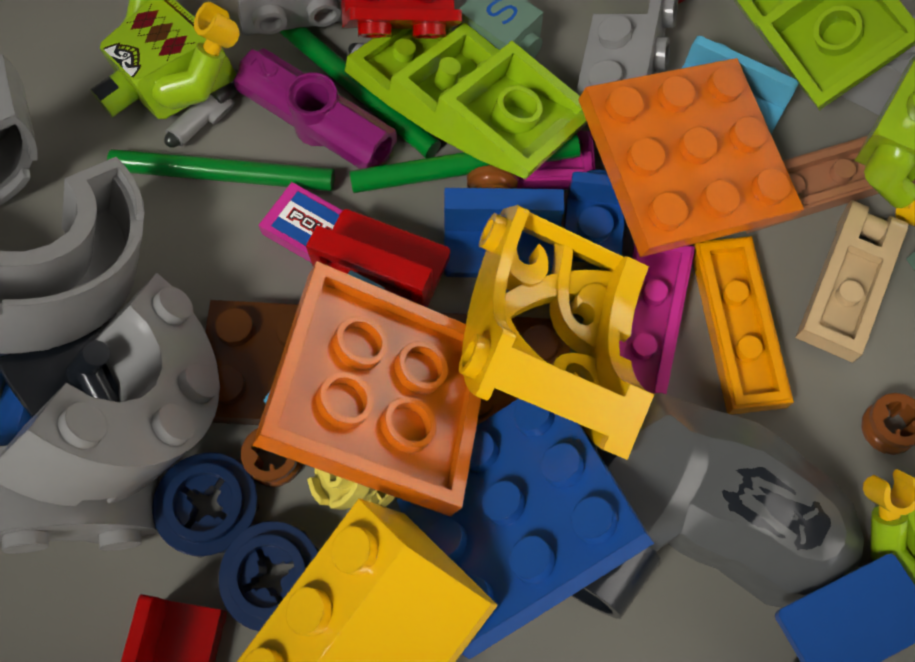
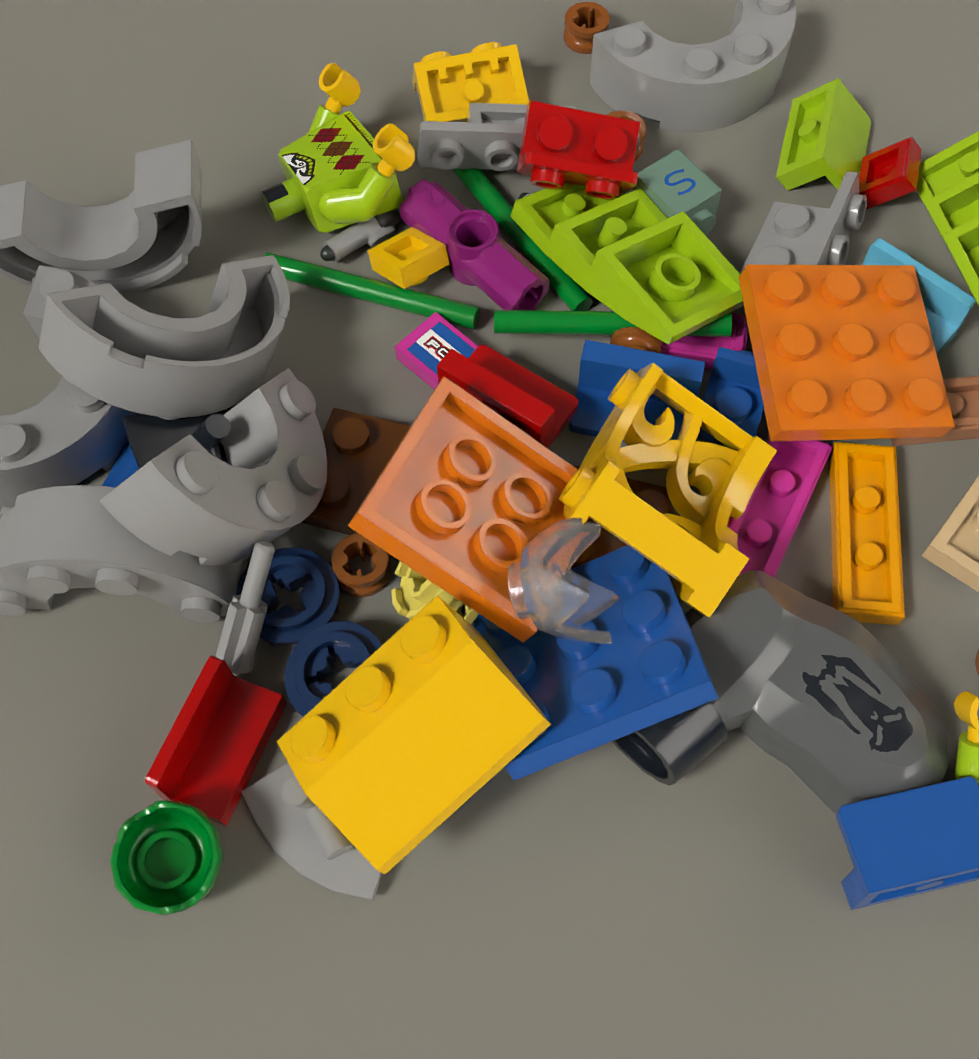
camera: 15 degrees right, 5 degrees down
(167, 541) = (246, 614): none -> light grey axle
(253, 131) = (408, 257): none -> yellow plate
(474, 467) = (552, 593): none -> clear piece

